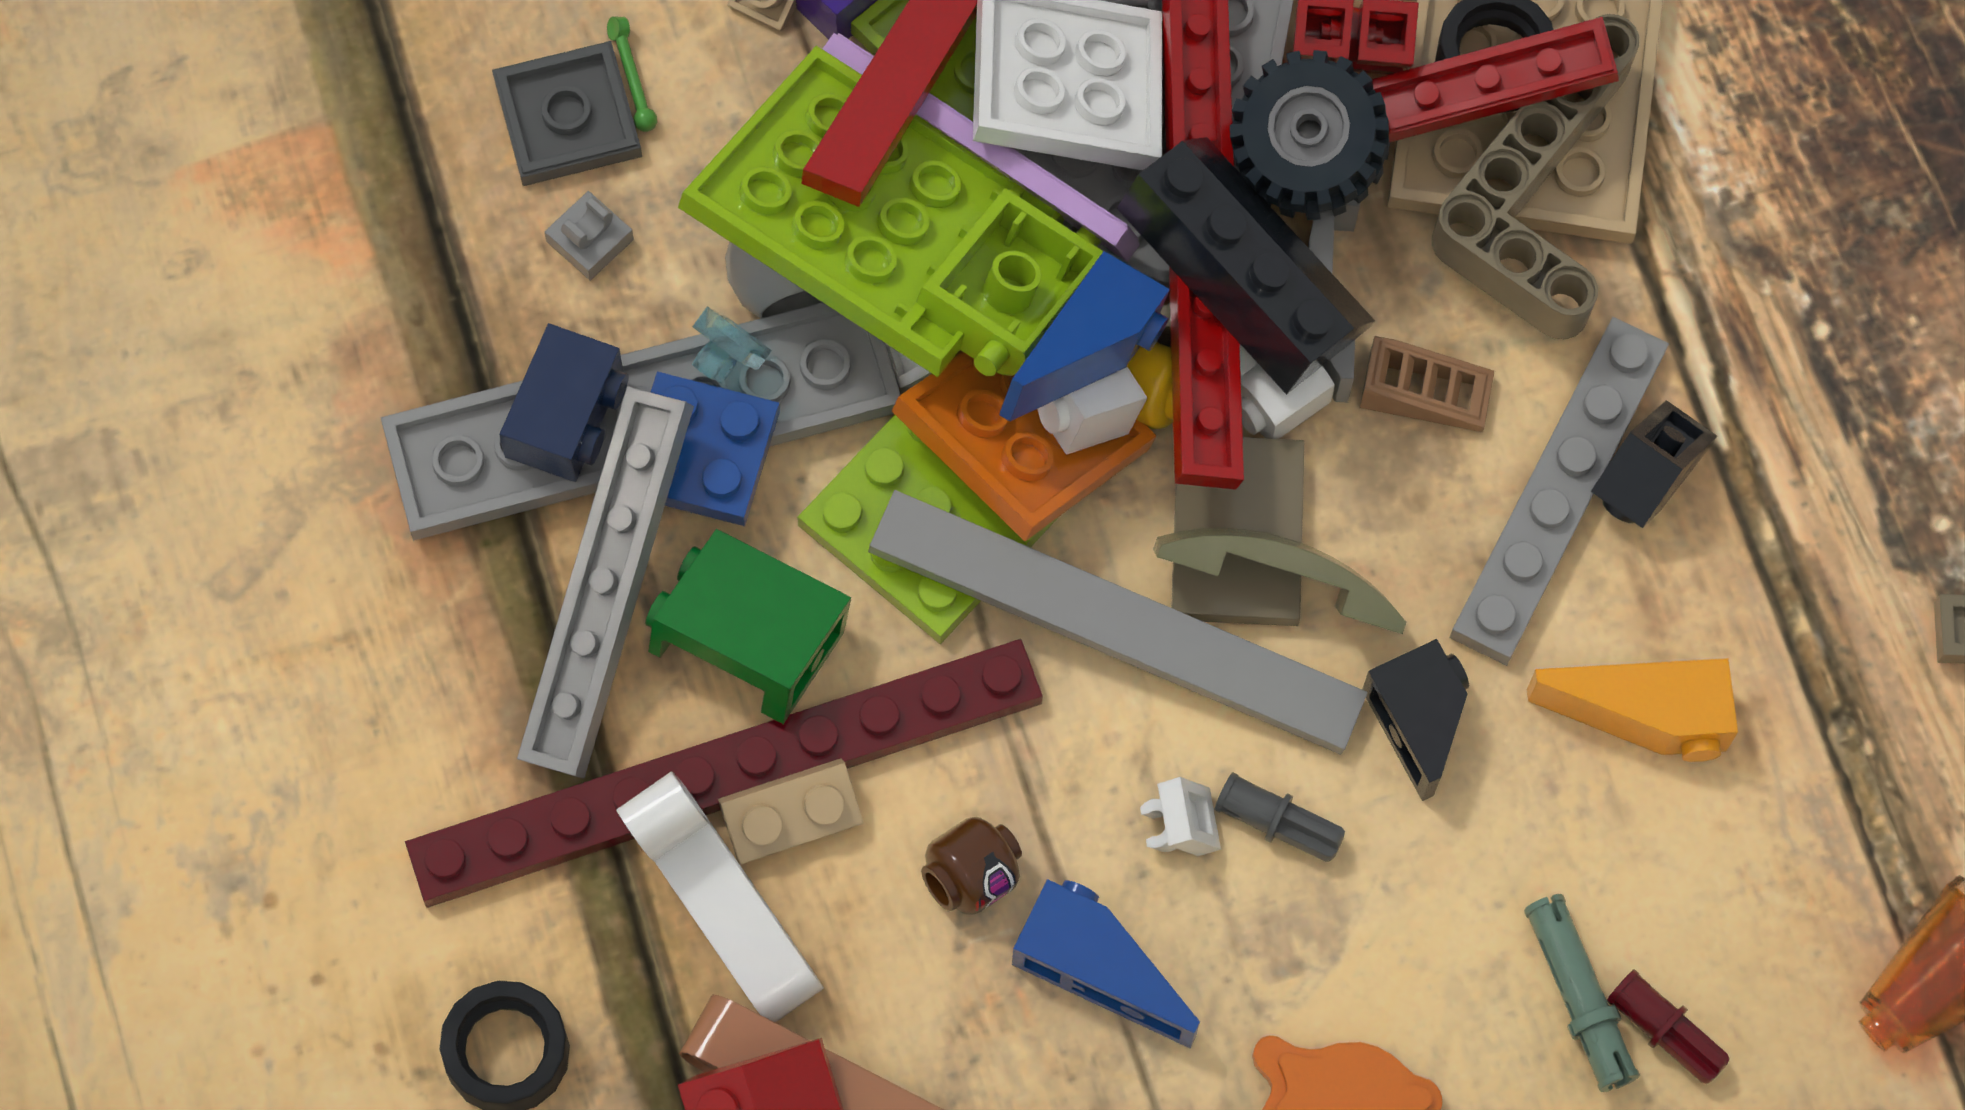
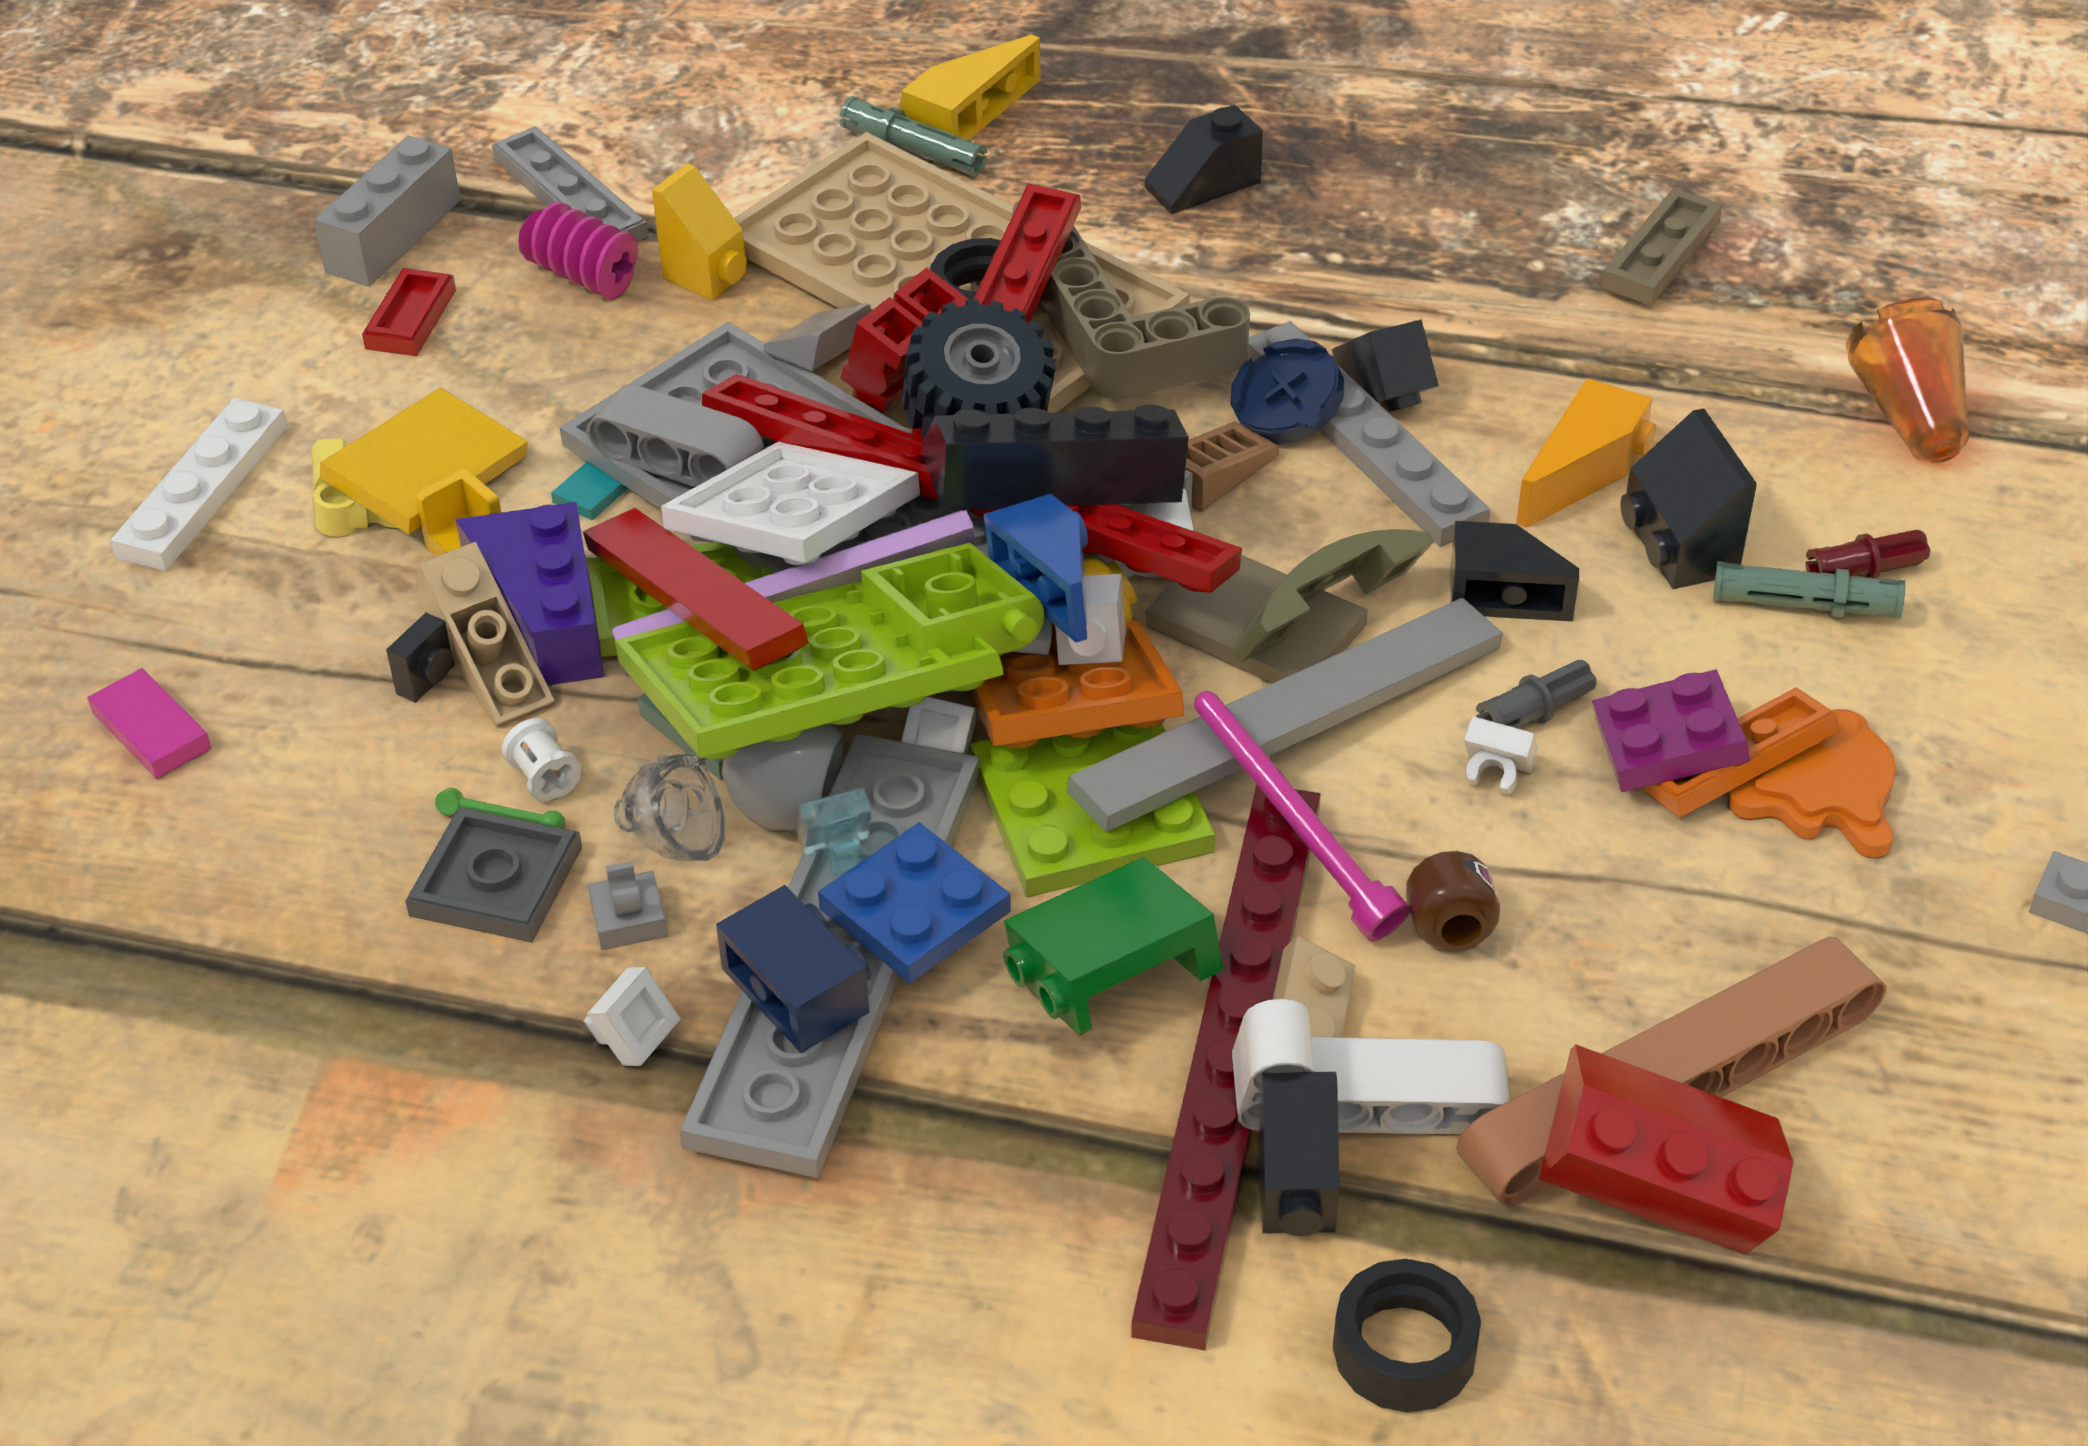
camera: 55 degrees left, 25 degrees down
(472, 313) = (632, 1017): none -> white tile
(605, 582) = (1001, 1018): light grey plate -> none
(606, 884) = (1298, 1153): none -> black slope
(668, 228) = (659, 809): none -> clear helmet
(695, 68) = (541, 759): none -> white bush
(935, 802) = (1374, 907): none -> dark pink piece
(1090, 954) = (1600, 857): blue slope -> none
(1294, 951) = (1670, 730): none -> magenta plate
(1310, 1022) = (1772, 735): none -> orange tile
(1550, 397) = (1288, 391): none -> dark blue tile
(1603, 833) = (1690, 502): none -> black slope
(1863, 135) = (1208, 160): none -> black slope

